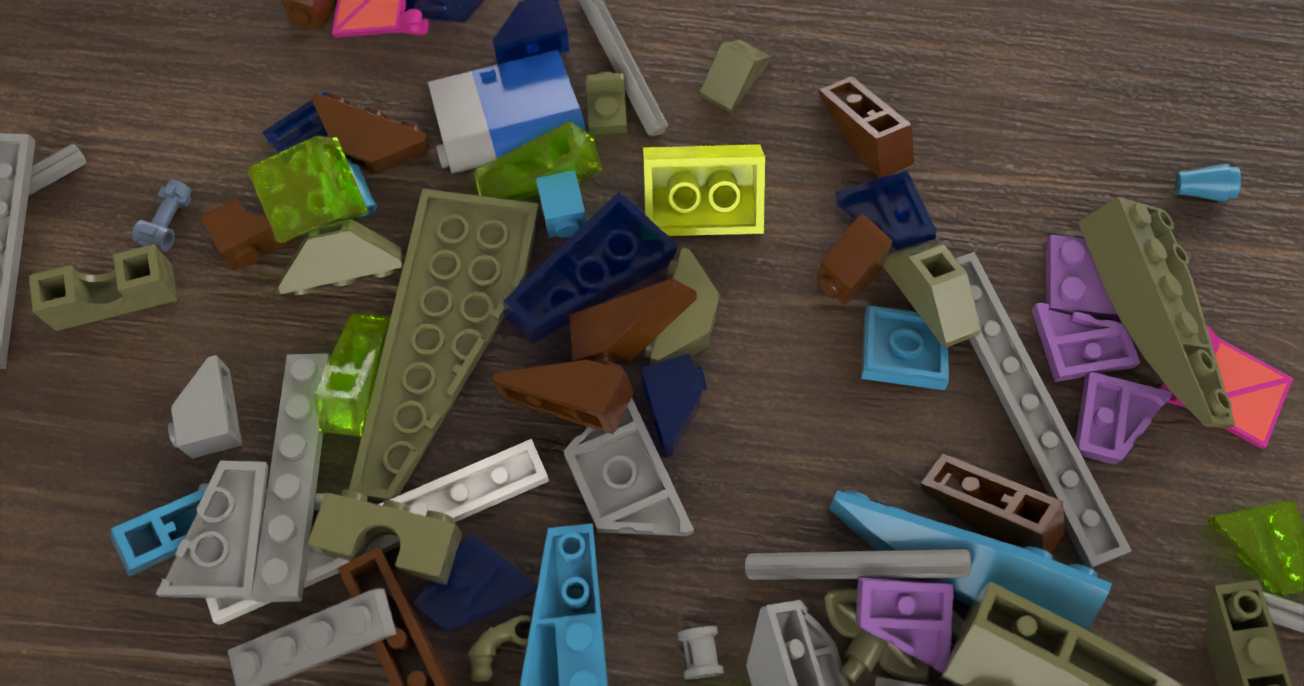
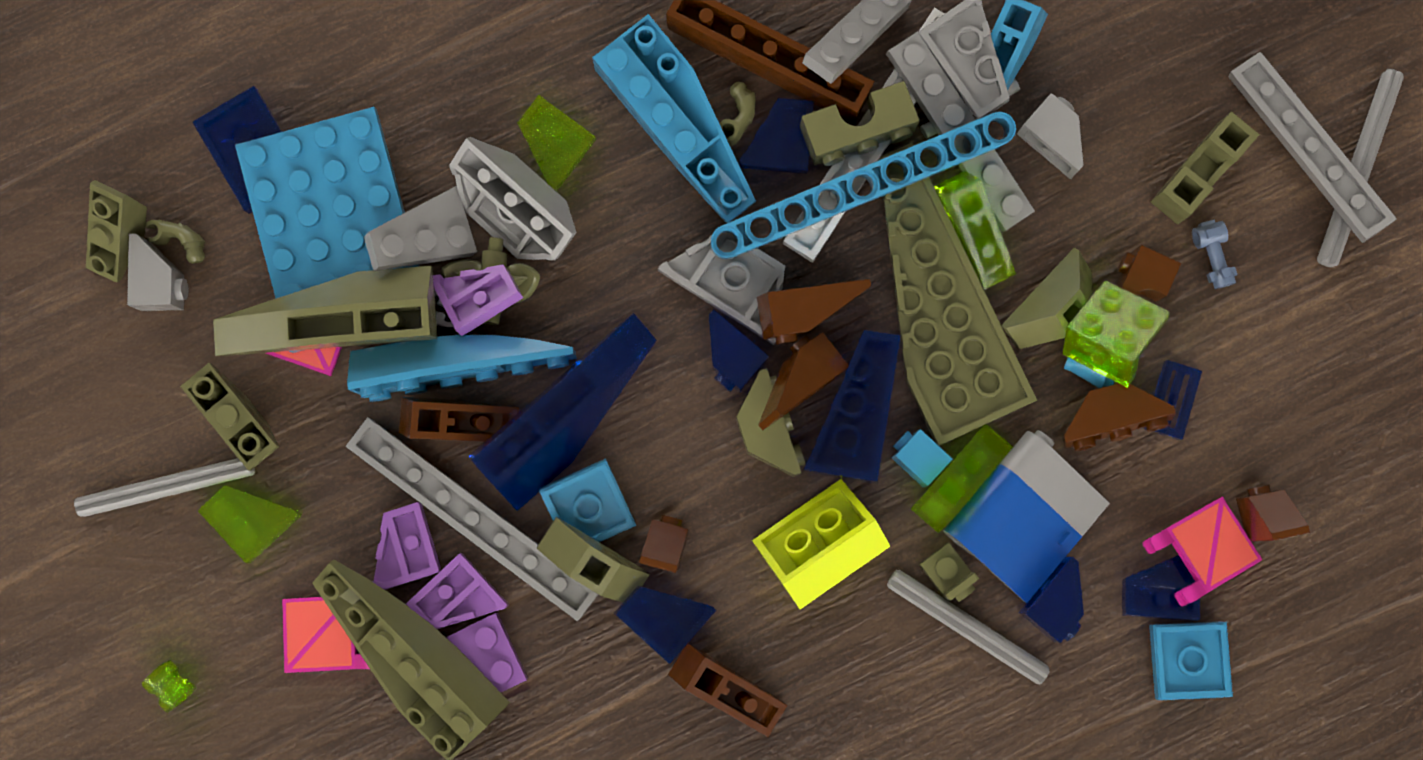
camera: 150 degrees right, 15 degrees up
(416, 453) = (875, 173): none -> dark azure beam
(700, 652) = (602, 192): light grey bush -> none
(733, 74) = (865, 675): olive slope -> none
(859, 564) = (528, 309): light grey axle -> none
(884, 444) = (562, 418): none -> clear blue wedge

